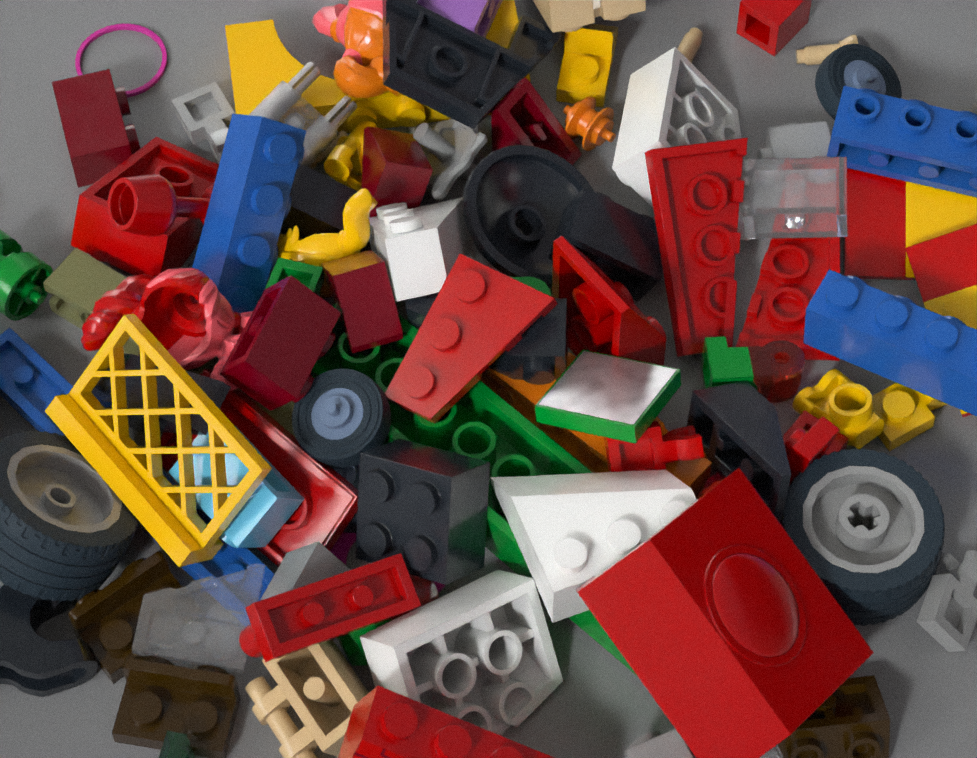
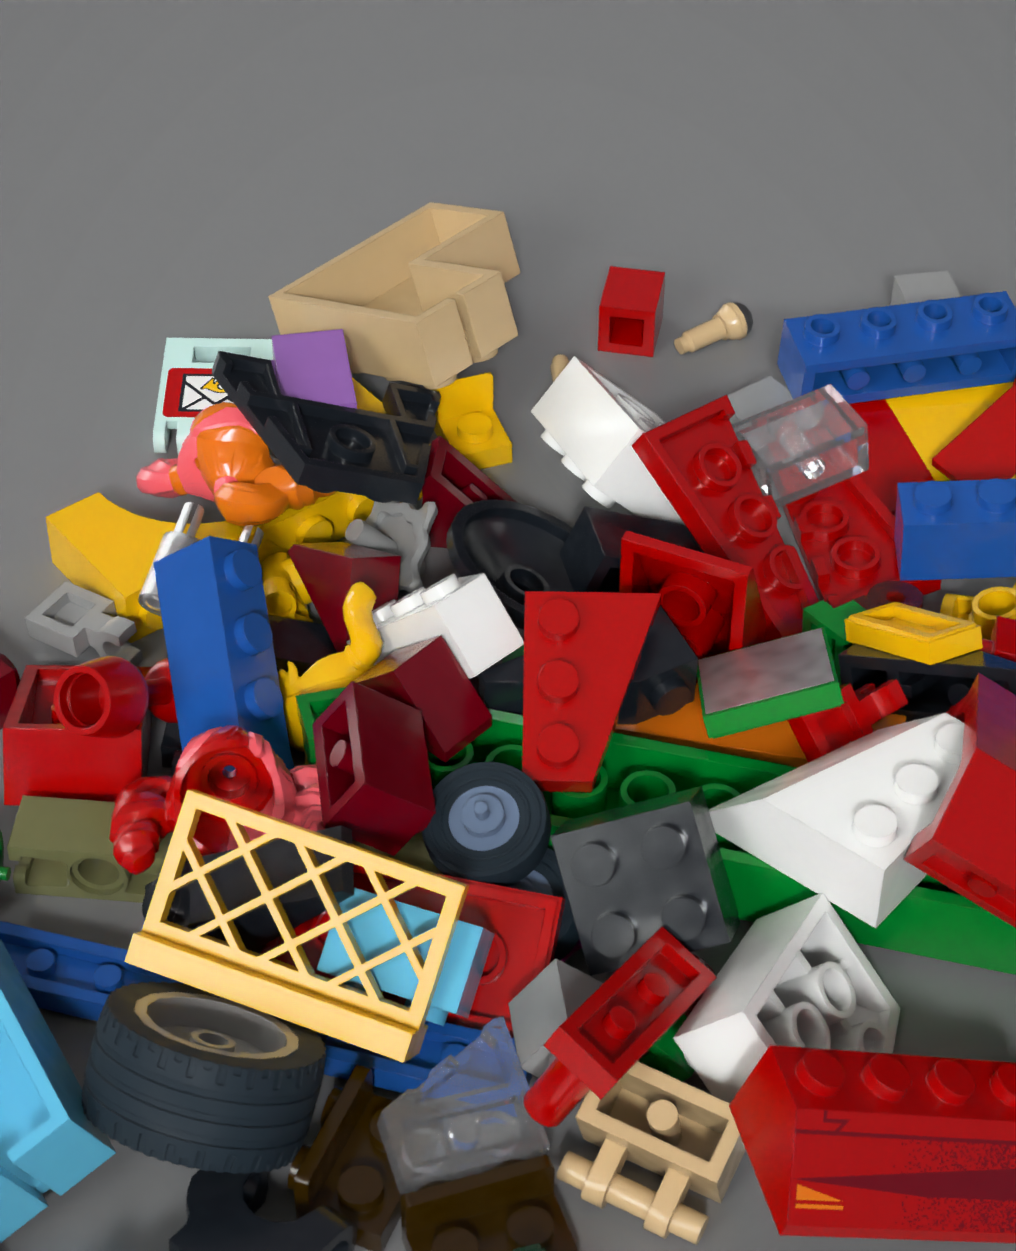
camera: 30 degrees left, 15 degrees down
(590, 124) = (518, 471): orange wheel -> none
(751, 401) = (913, 633): none -> yellow tile
(856, 68) = (753, 338): black wheel -> none

